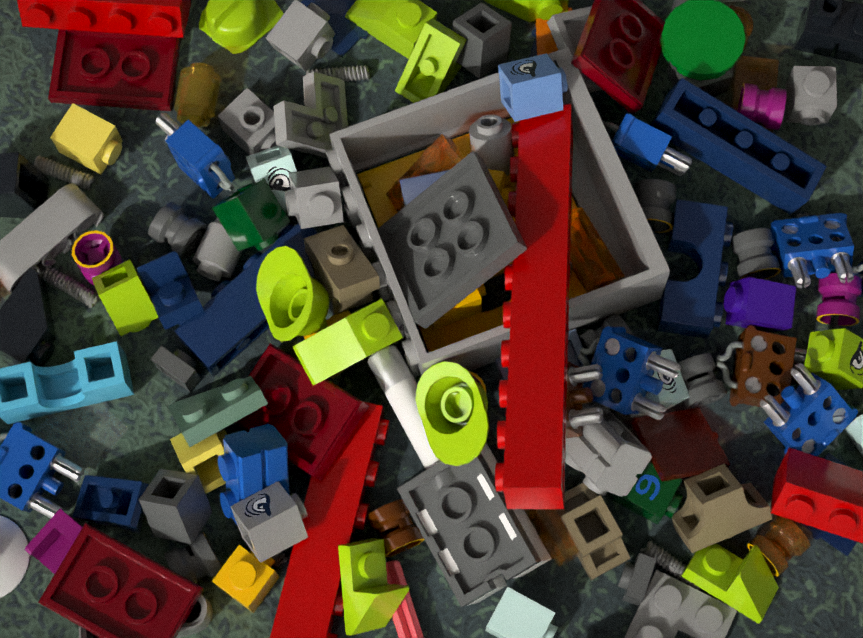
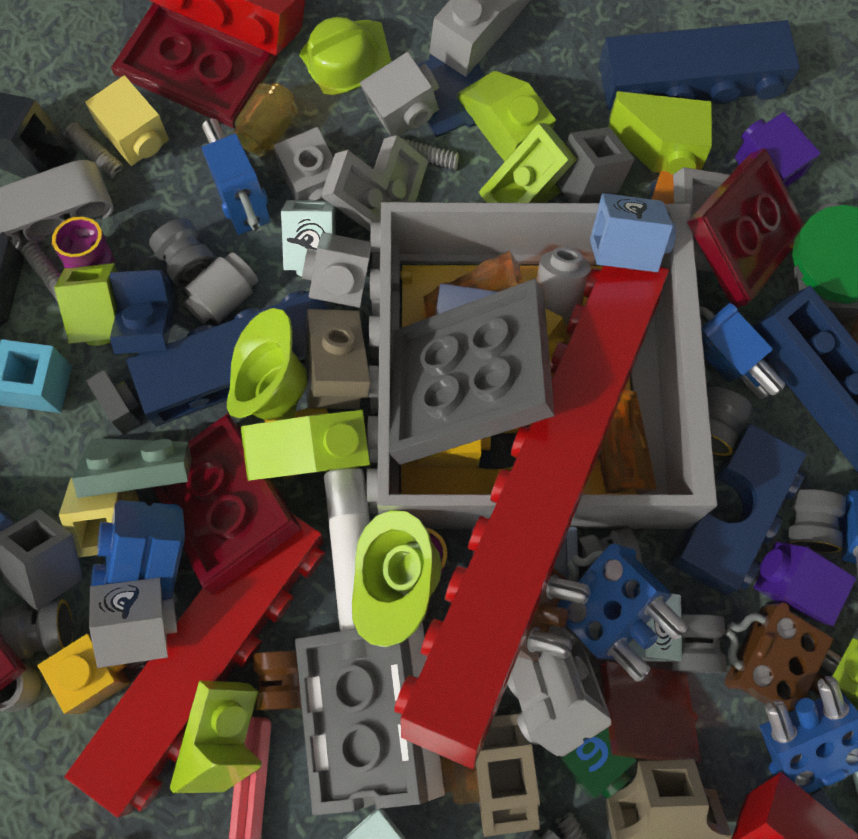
camera: 15 degrees right, 0 degrees up
(251, 216) = (263, 264): dark green brick -> none

